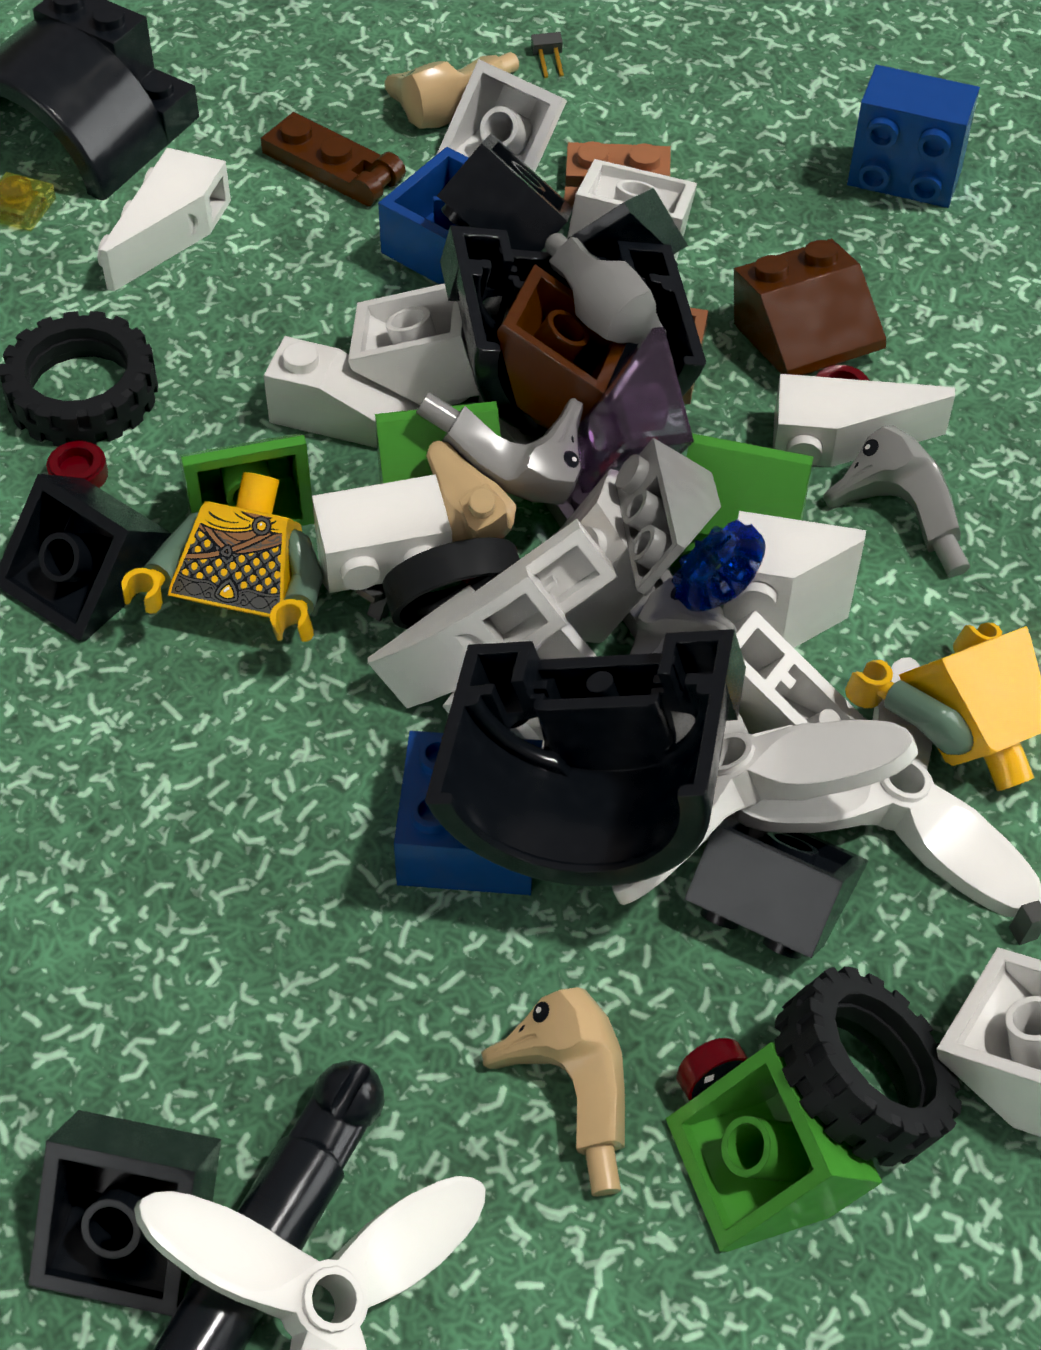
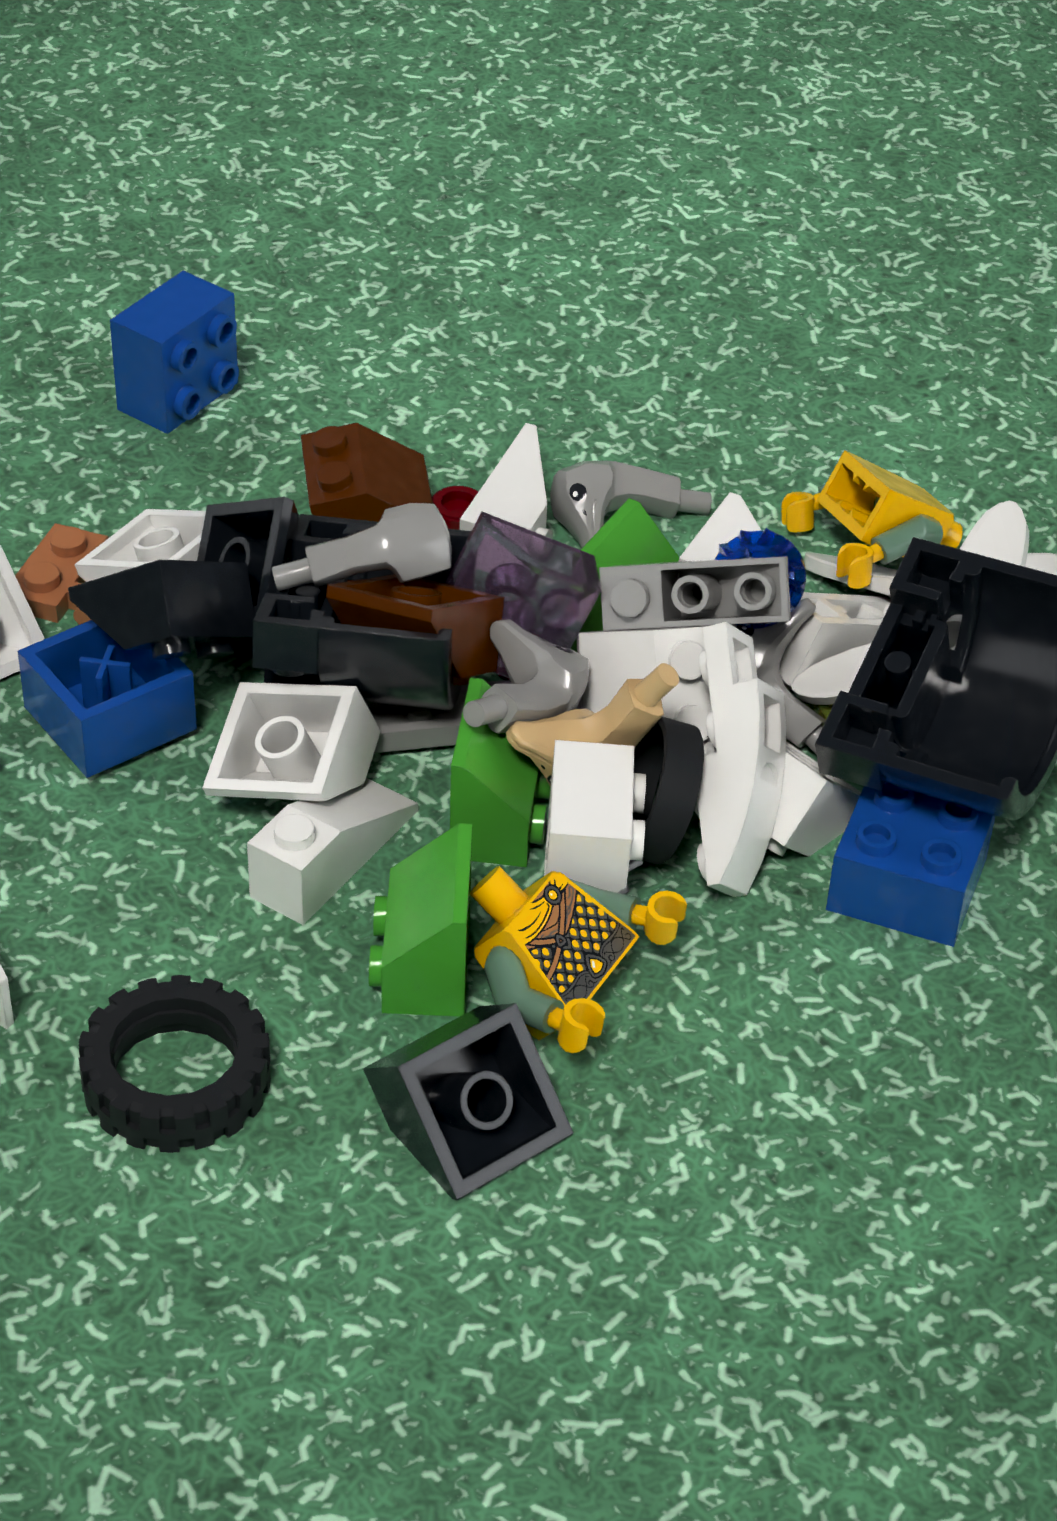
camera: 75 degrees left, 10 degrees down
(79, 460) = (311, 1094): dark red tile -> none

